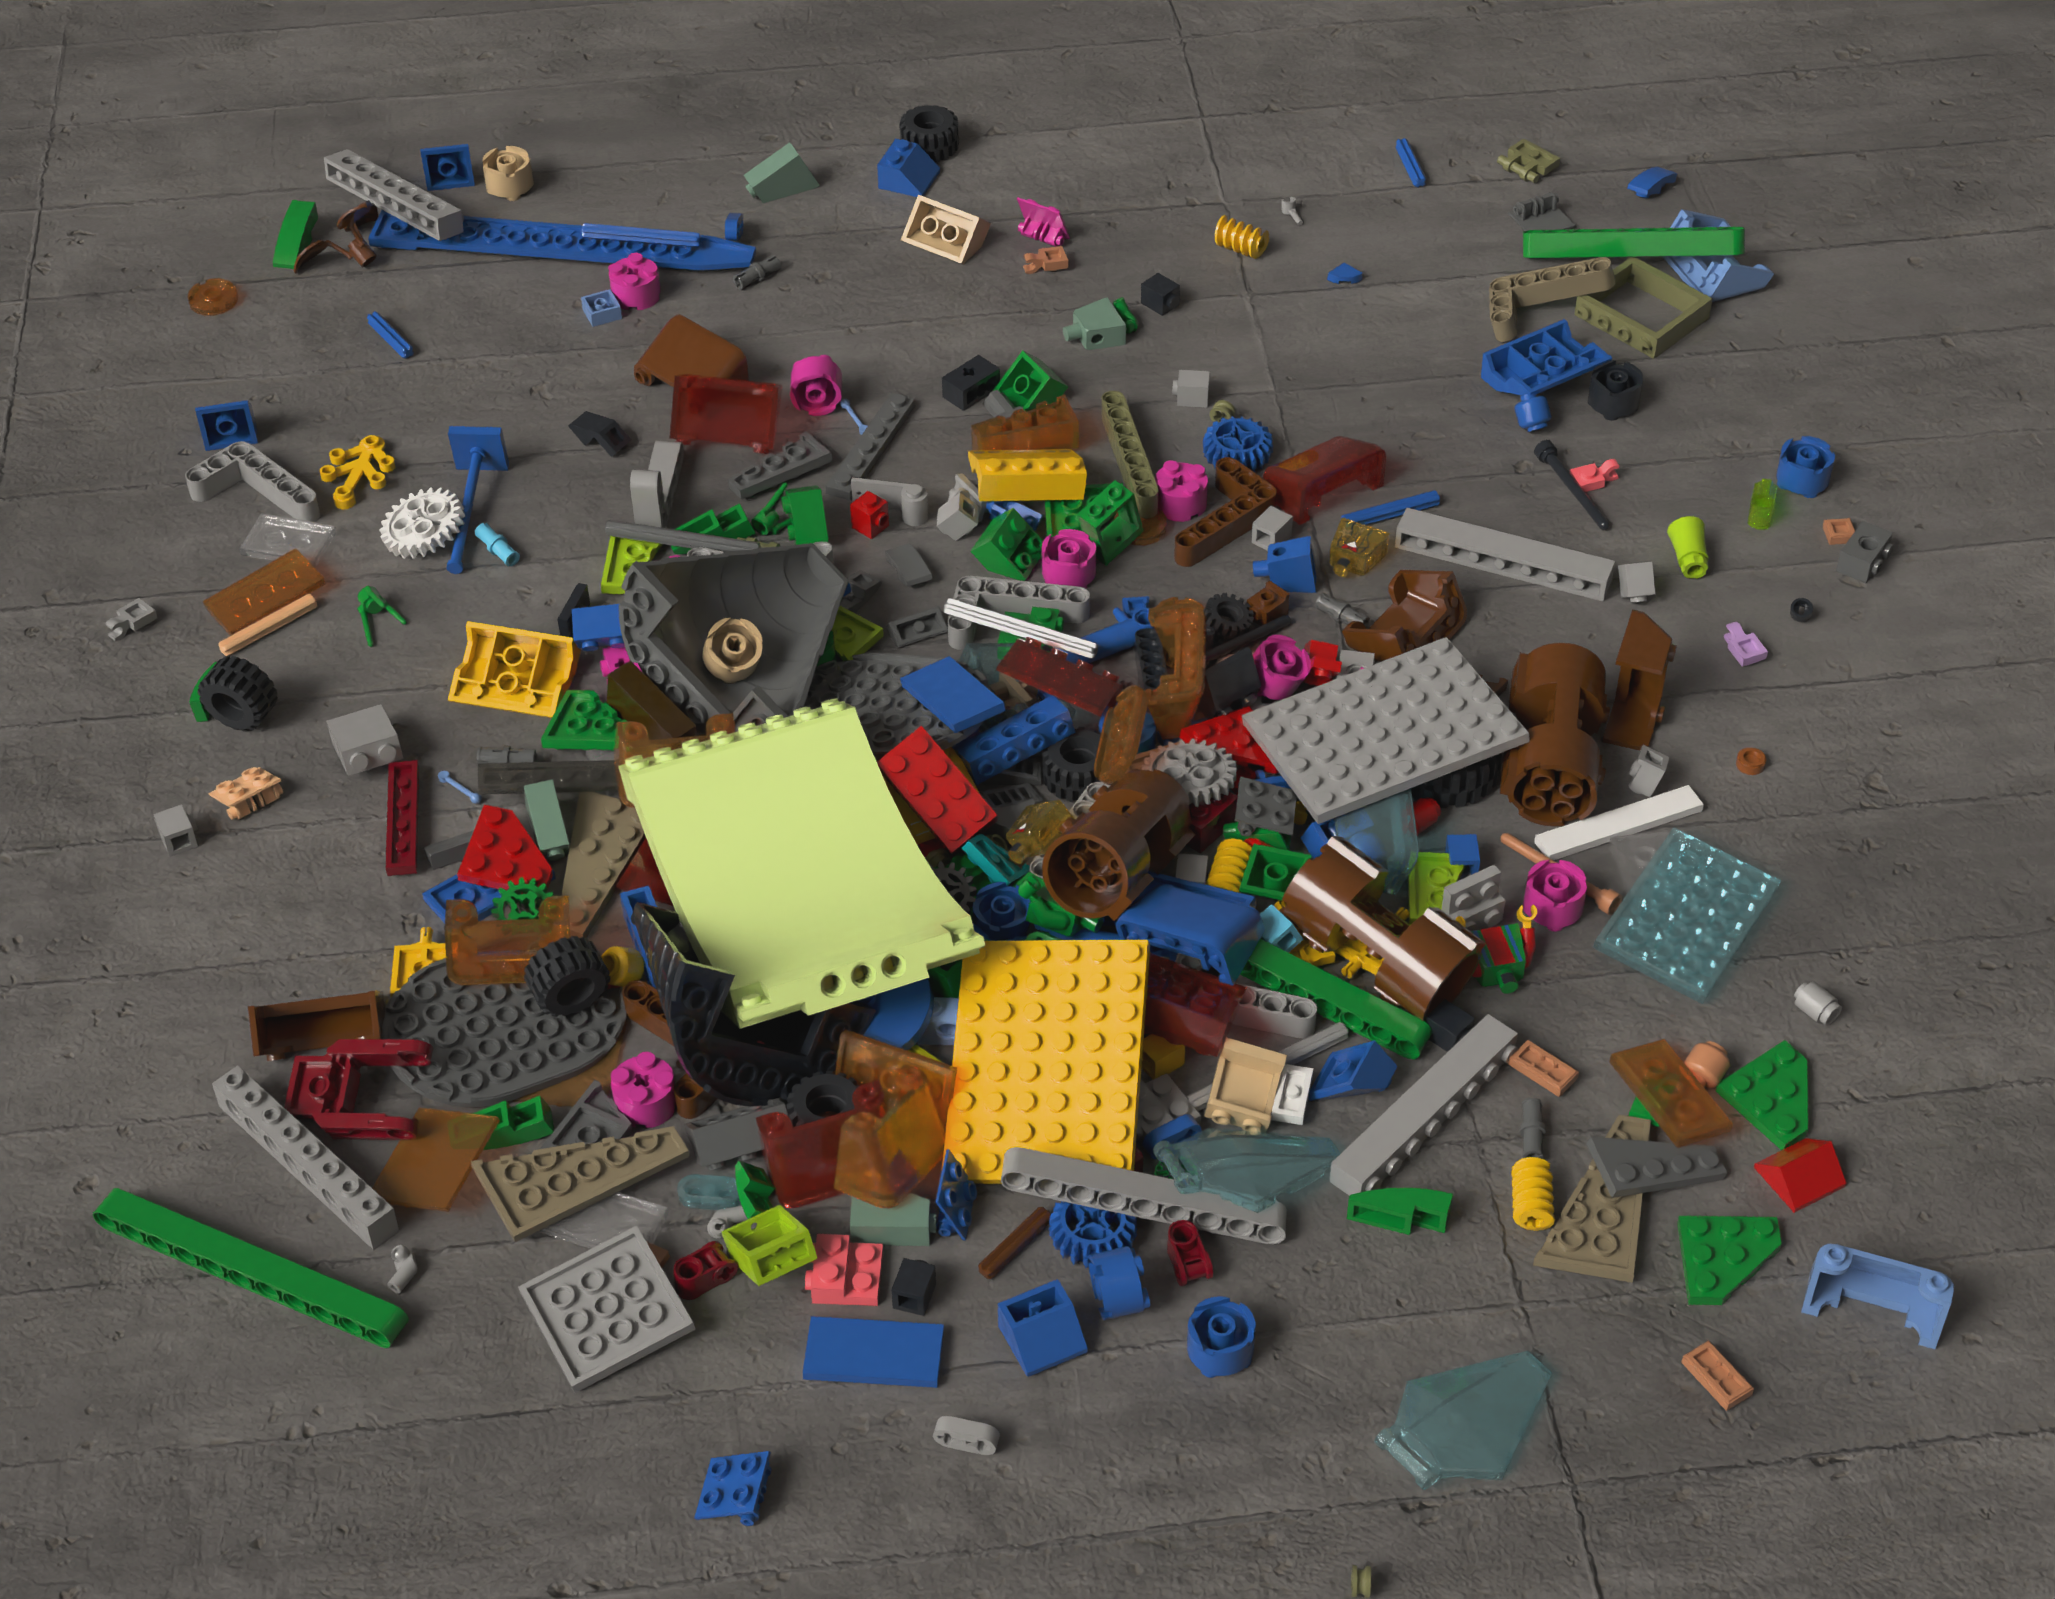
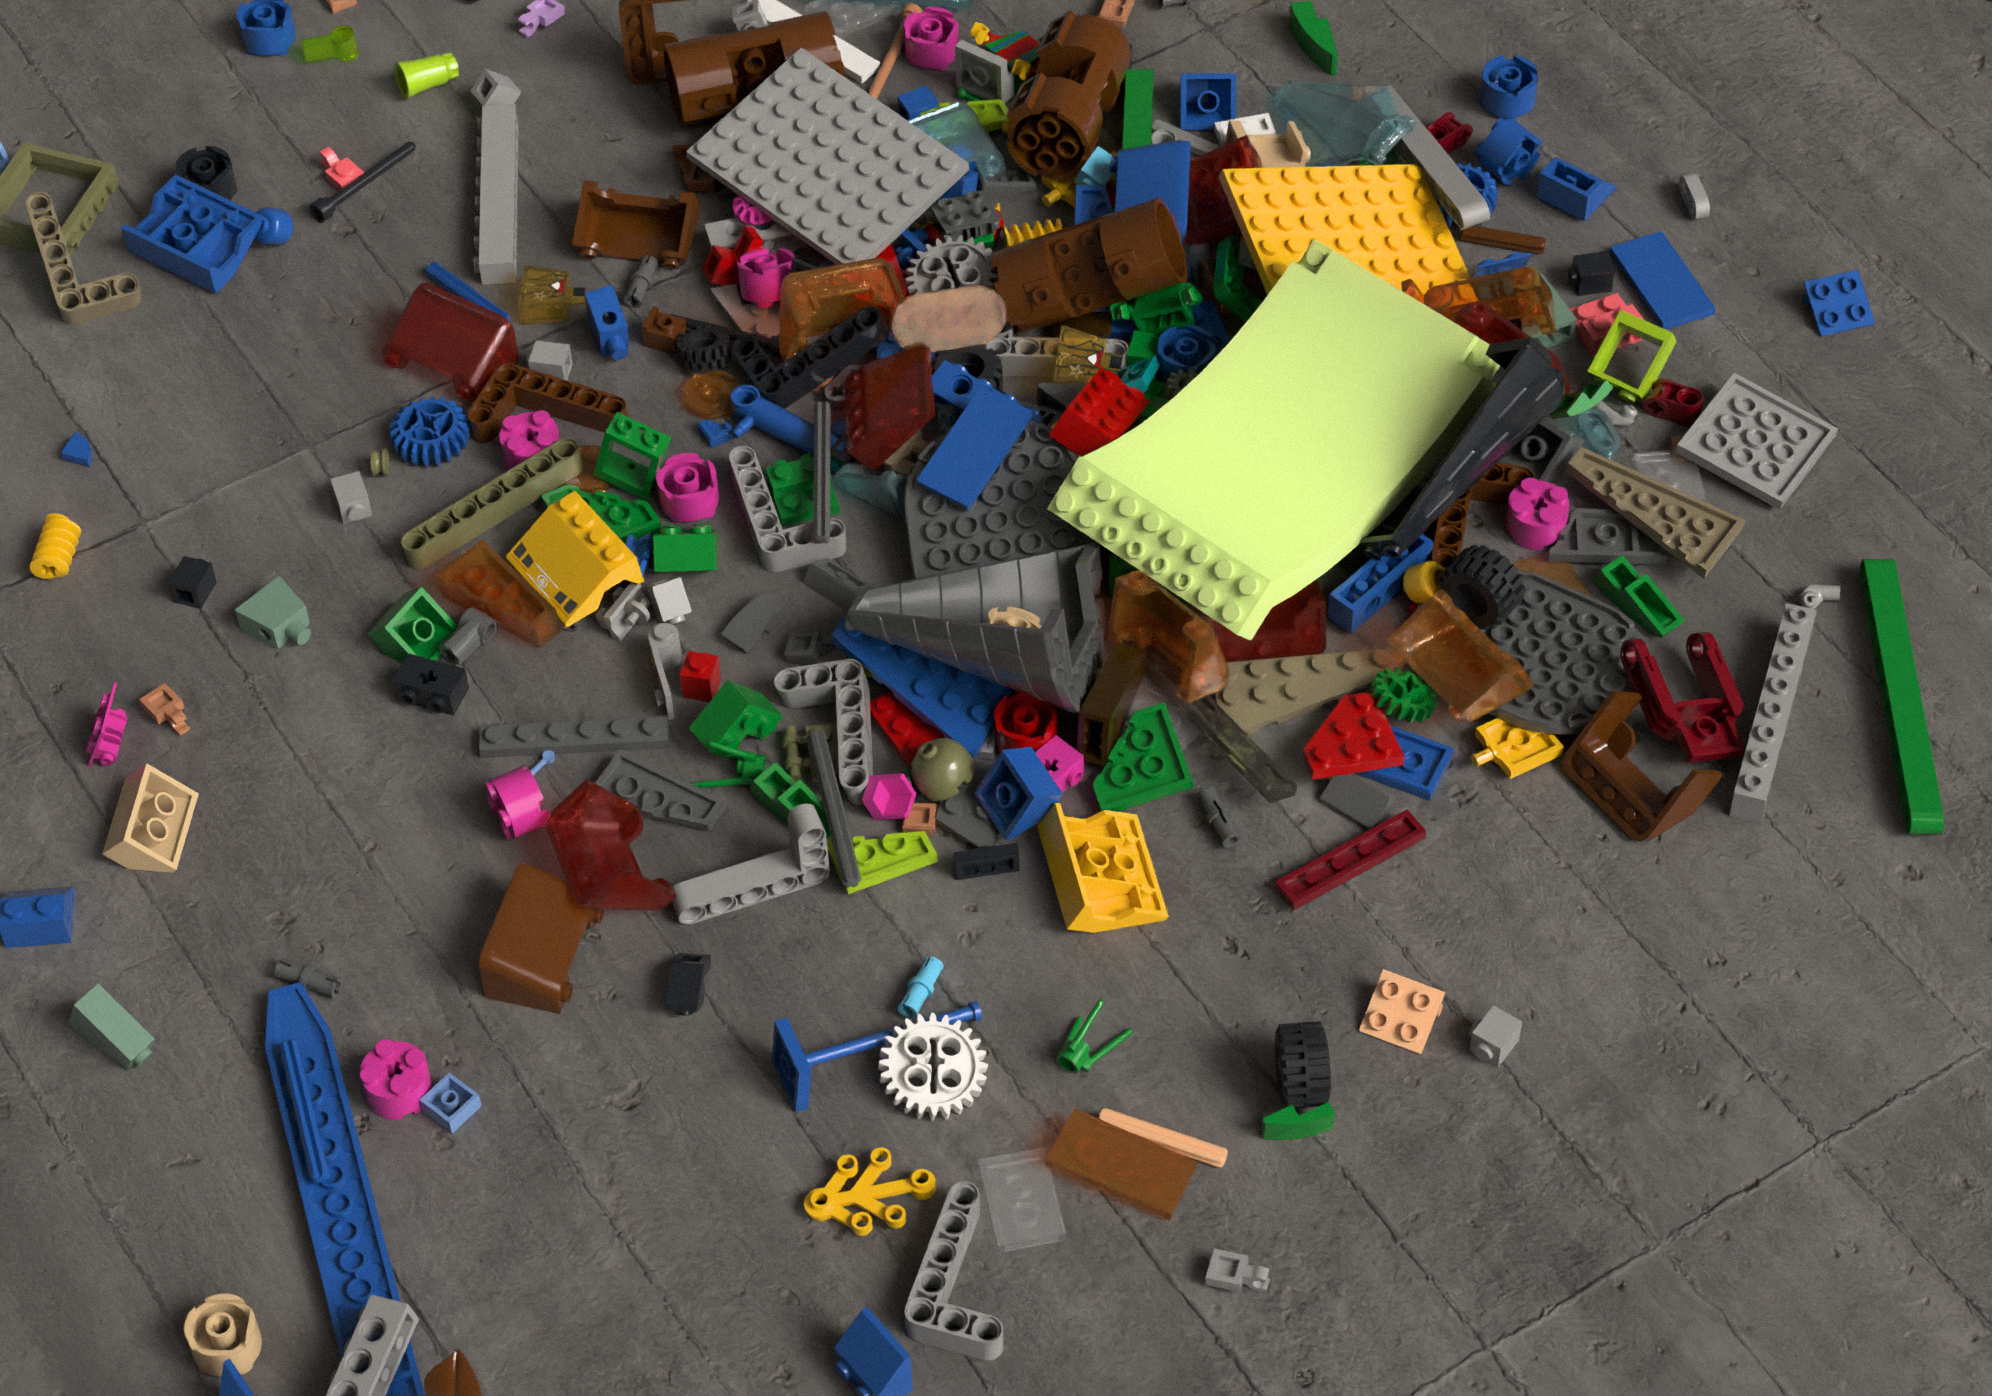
camera: 115 degrees left, 5 degrees up
(364, 739) = (1282, 932): light grey brick -> none
(390, 335) = (606, 1304): blue axle -> none
(437, 1162) = (1718, 605): clear orange piece -> none
(445, 777) = (1271, 864): medium blue hinge -> none
(546, 819) = (1289, 727): sand green slope -> none
(734, 226) = (236, 1030): blue beam -> none
(1126, 315) = (235, 600): green arm -> none
(1271, 871) = (1029, 197): green slope -> none
(1424, 1107) = (1215, 53): light grey brick -> none

